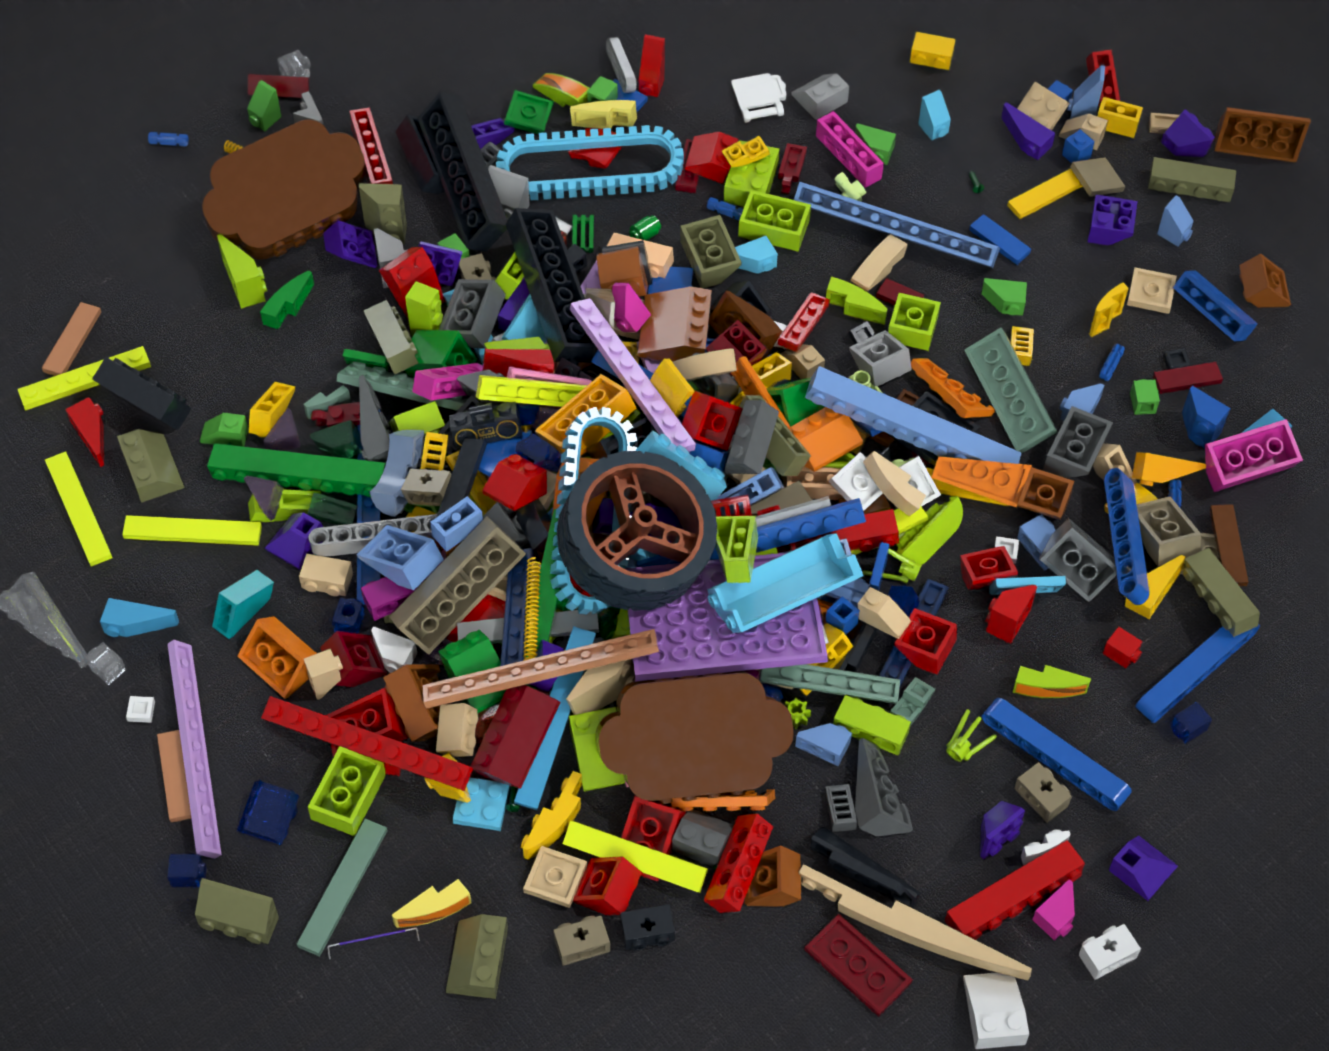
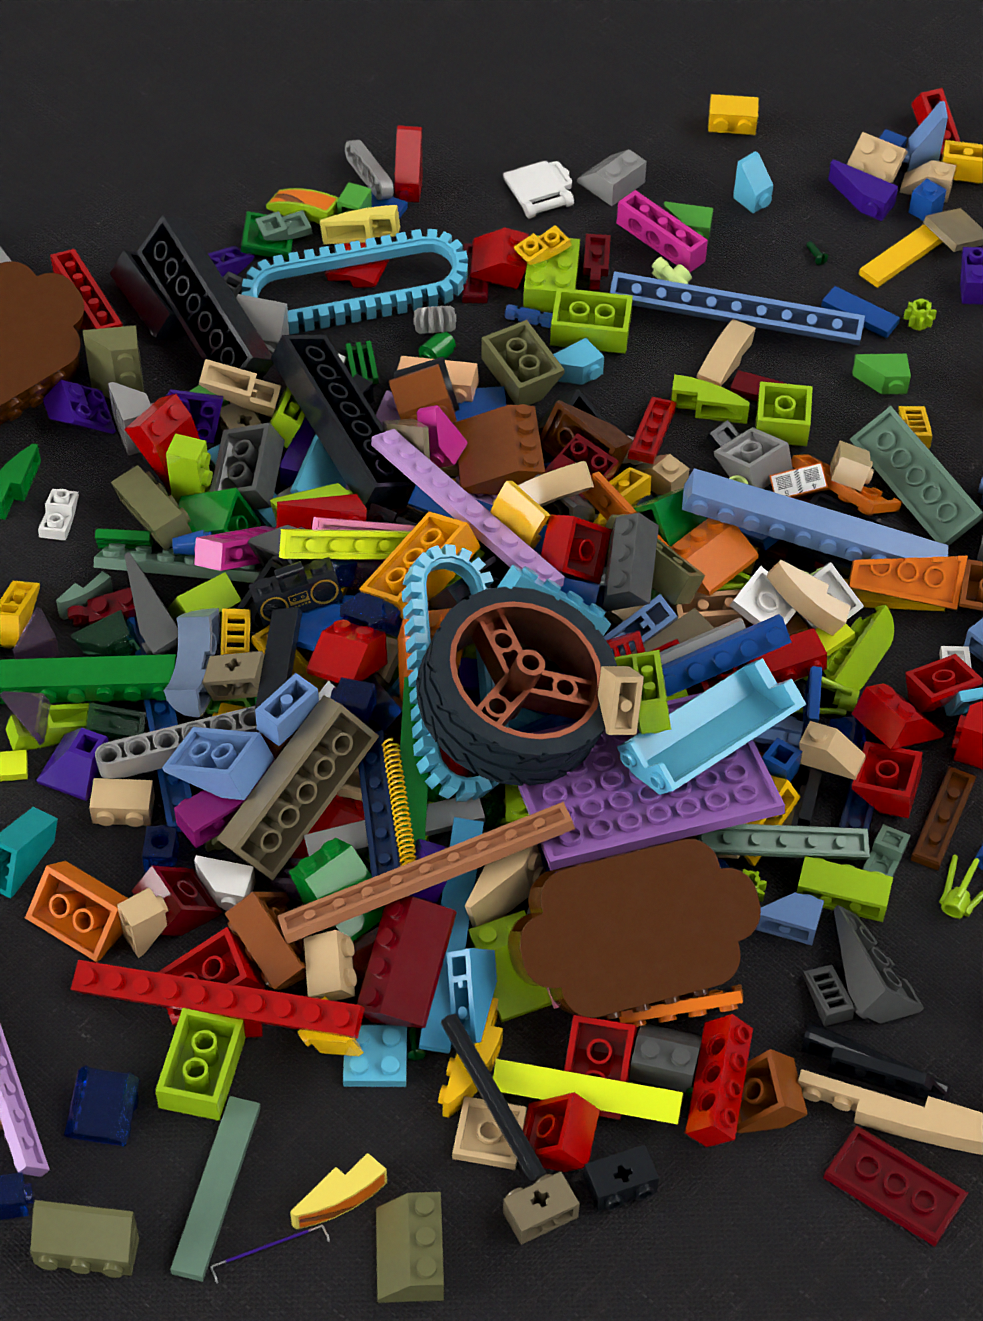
camera: 10 degrees left, 5 degrees down
(320, 331) = (59, 514): none -> white slope
(408, 371) = (186, 543): none -> blue cone
(476, 245) = (240, 387): none -> tan slope
(513, 521) = (356, 697): none -> clear blue brick
(542, 108) = (284, 228): none -> sand green slope
(561, 763) = (472, 987): none -> dark azure slope
(561, 850) = (493, 1097): none -> black axle
(647, 204) = (434, 319): none -> light grey gear
(711, 554) = (620, 699): none -> tan slope
(912, 382) = (800, 481): none -> white tile
(942, 592) = (893, 718): none -> red slope
(958, 374) = (851, 466): none -> tan brick
(965, 678) = (943, 818): none -> reddish brown tile
(1048, 248) = (920, 314): none -> lime gear

